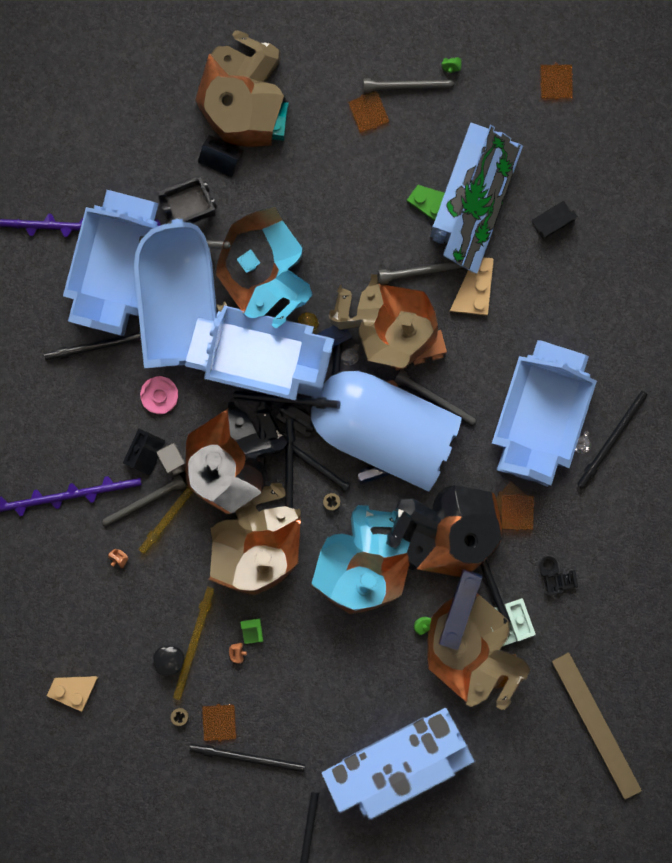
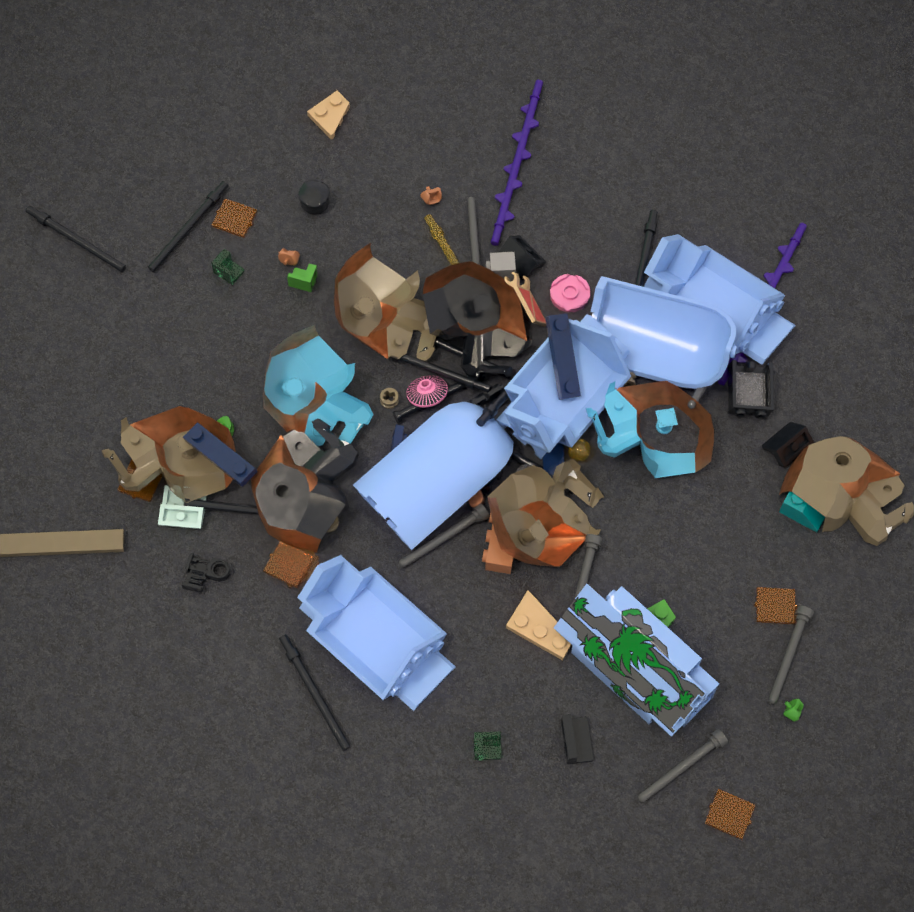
camera: 115 degrees right, 20 degrees down
(185, 719) = (257, 192): dark tan bush -> none
(191, 423) = (527, 299): none -> tan flag
(204, 606) = (347, 247): clear yellow bar -> none
(240, 365) = (563, 356): none -> dark blue plate
(273, 700) = (226, 268): none -> clear green panel
(319, 468) = (427, 391): none -> dish
(399, 765) = (102, 340): light blue panel -> none
(505, 113) = (716, 740): none -> dark grey piece
(584, 443) = (325, 659): clear piece -> none
(592, 285) = (487, 745): none -> clear green panel

